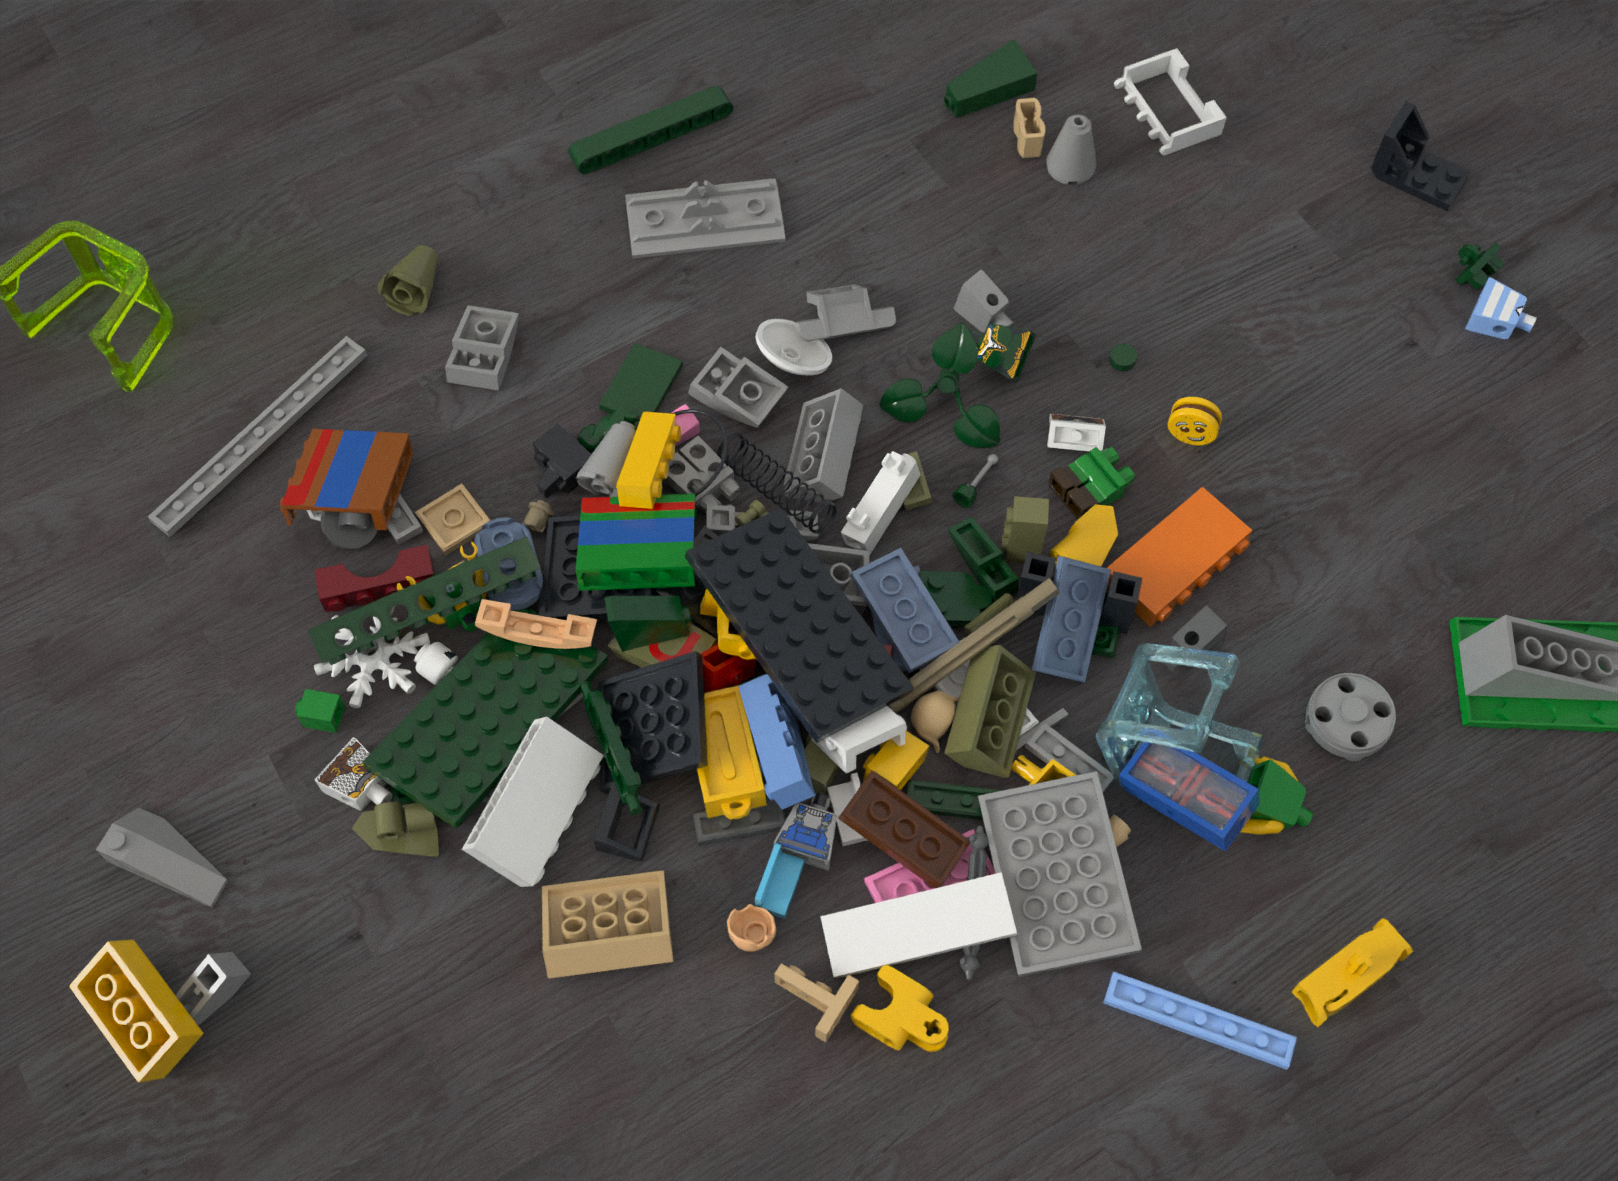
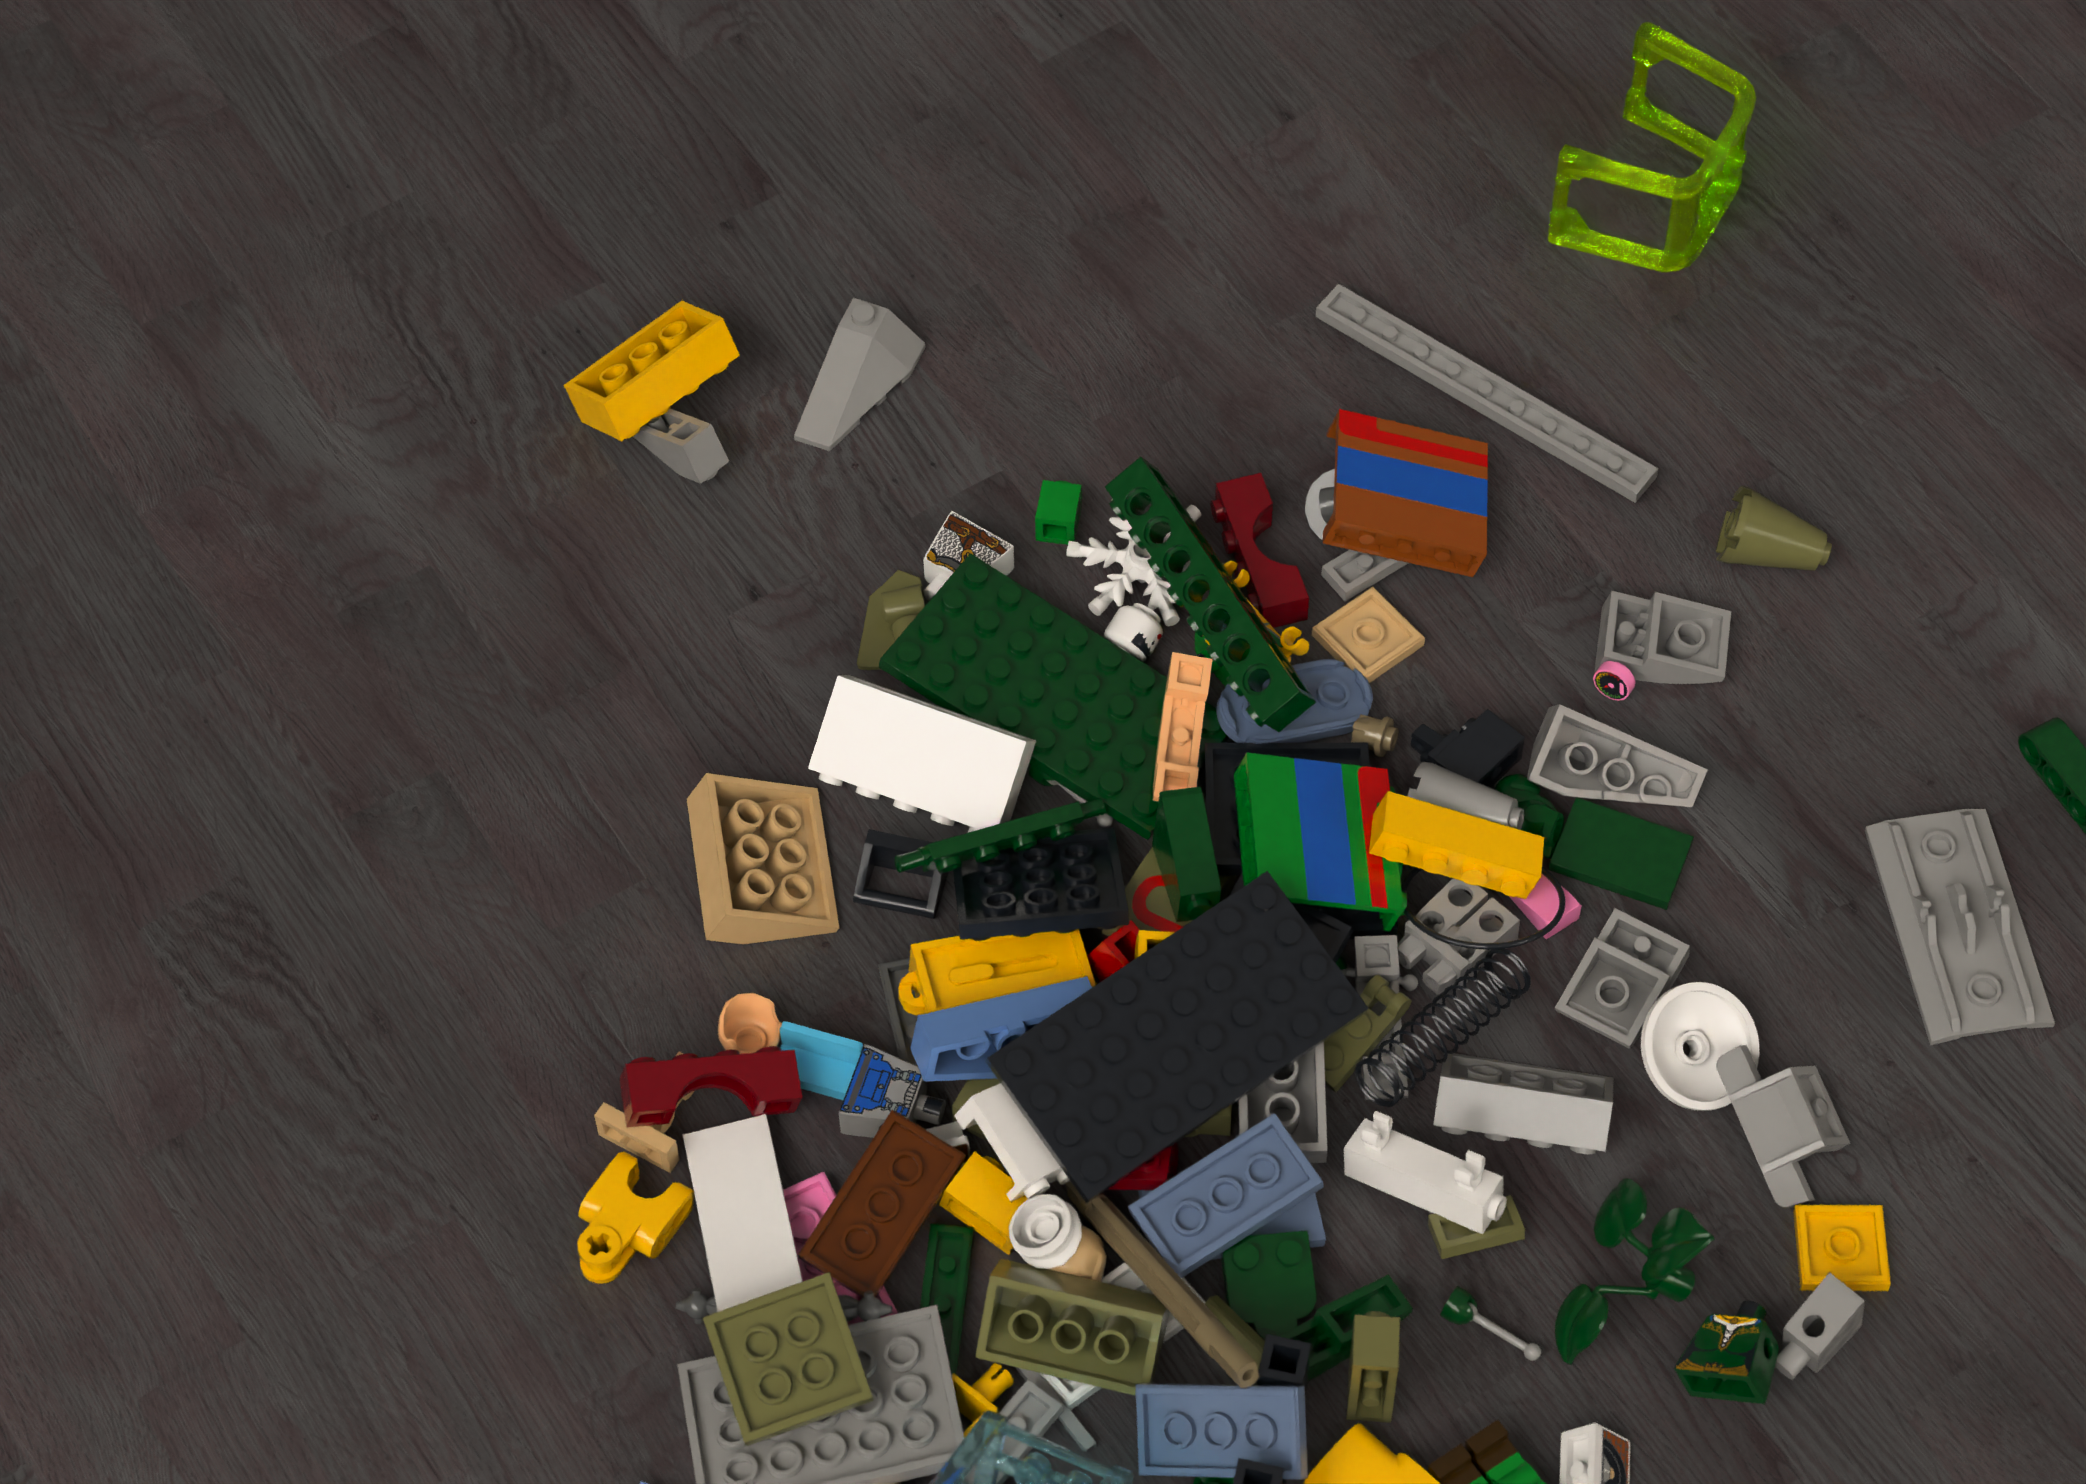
camera: 90 degrees right, 5 degrees down
(511, 375) = (1614, 680): none -> tile
(576, 389) = (1599, 762): none -> light grey wedge
(816, 981) = (761, 1080): none -> dark red arch
(922, 296) = (1842, 1241): none -> yellow tile
(930, 720) = (1045, 1231): none -> white piece
(1032, 885) = (787, 1359): none -> olive plate

